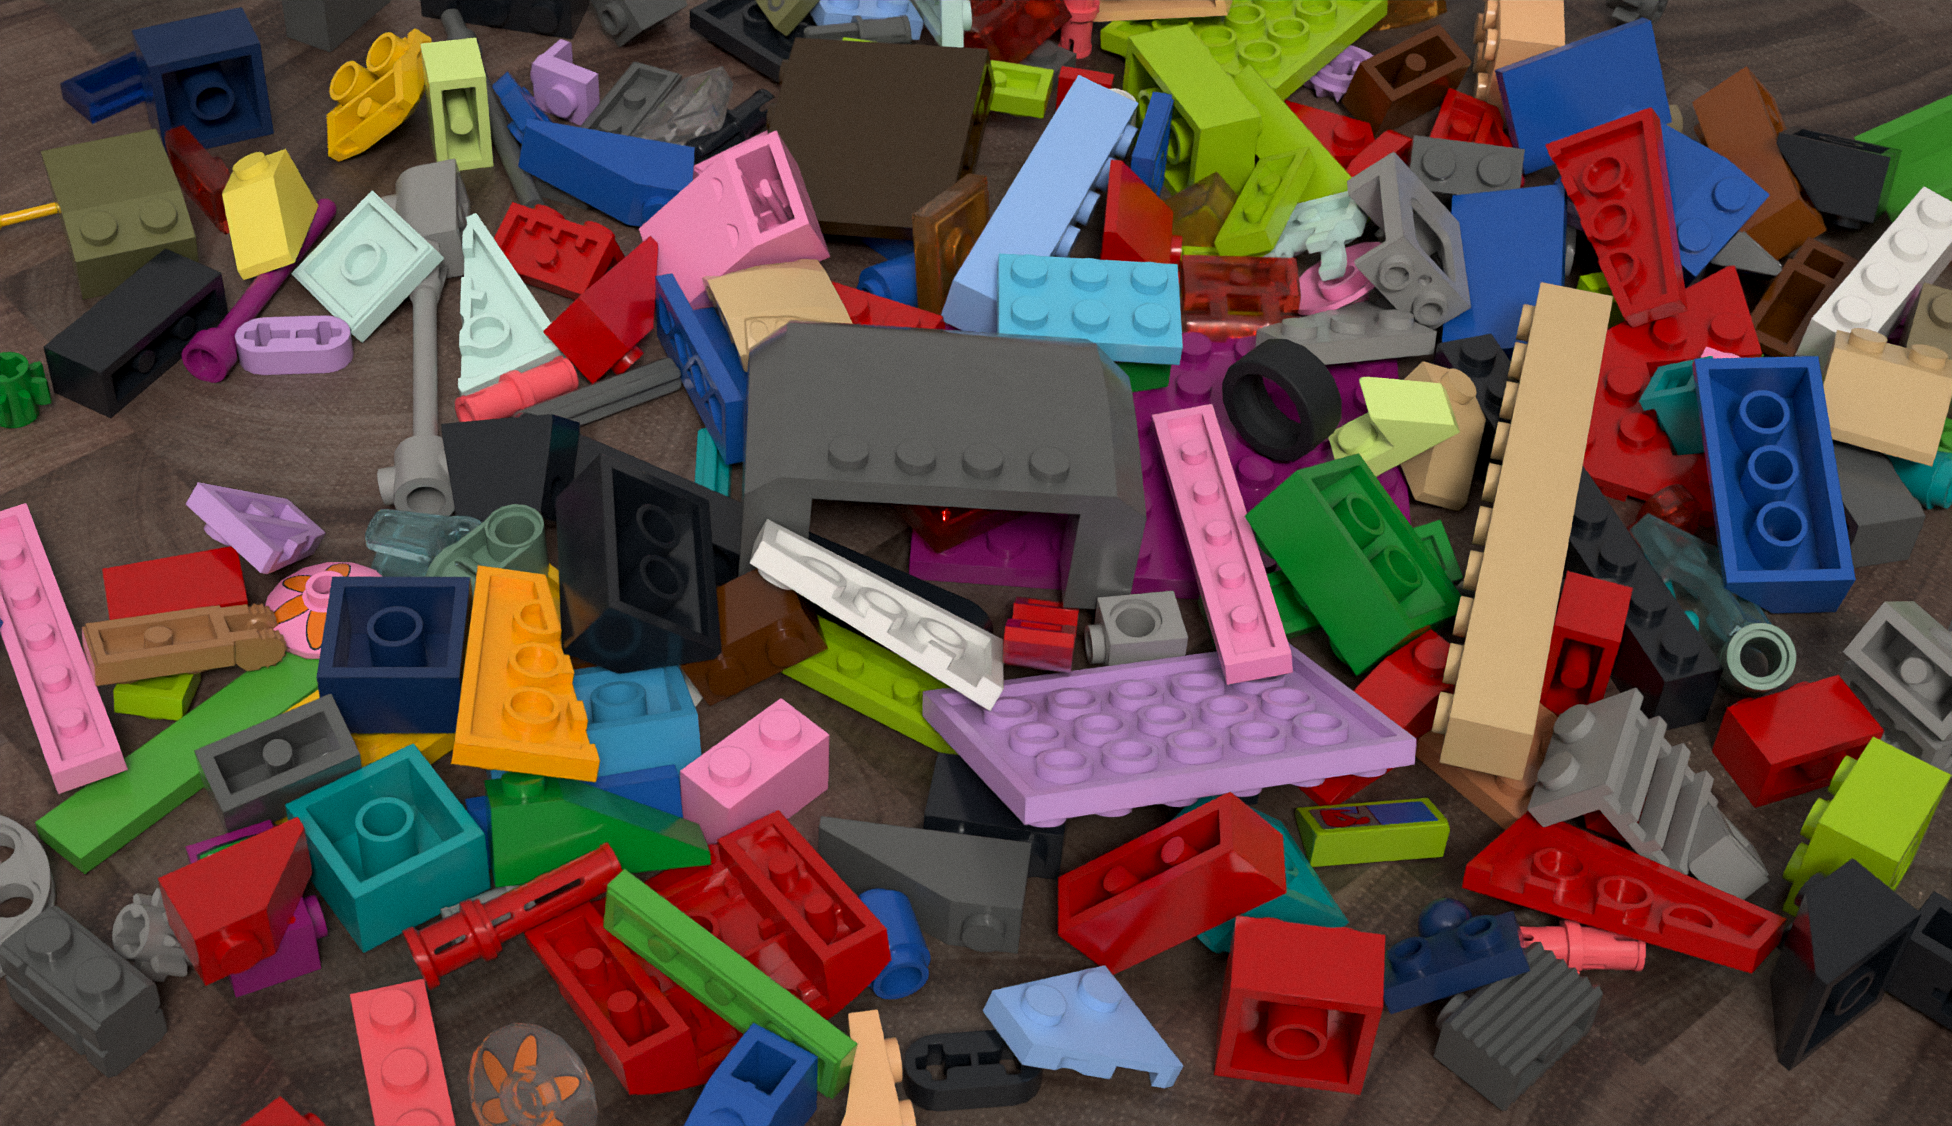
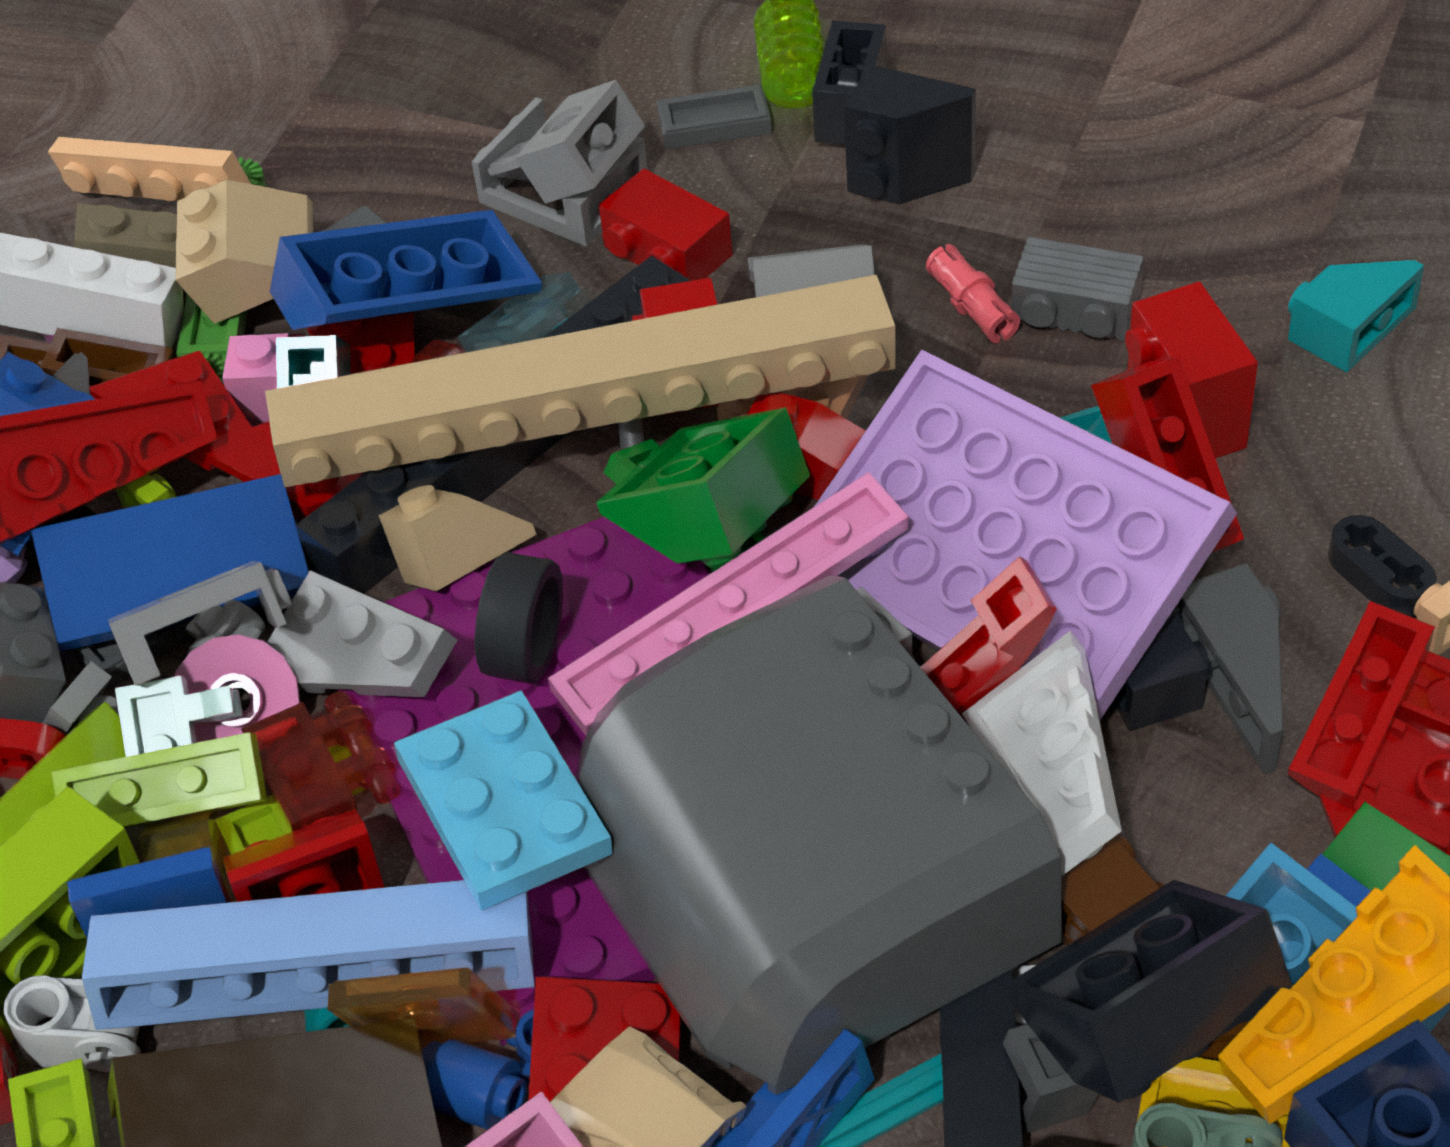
camera: 110 degrees left, 5 degrees up
(760, 768) = (1236, 814): bright pink brick -> none
(908, 948) = (1315, 658): blue brick -> none
(1080, 1025) = (1299, 511): light blue wing -> none
(1399, 423) = (500, 516): yellowish green slope -> none
(1452, 955) = (1059, 325): dark blue plate -> none
(1621, 892) = (920, 261): red wing -> none
(1725, 856) = (817, 232): light grey slope -> none
(1773, 644) = (625, 241): sand green pin -> none
(1875, 817) = (771, 147): lime brick -> none

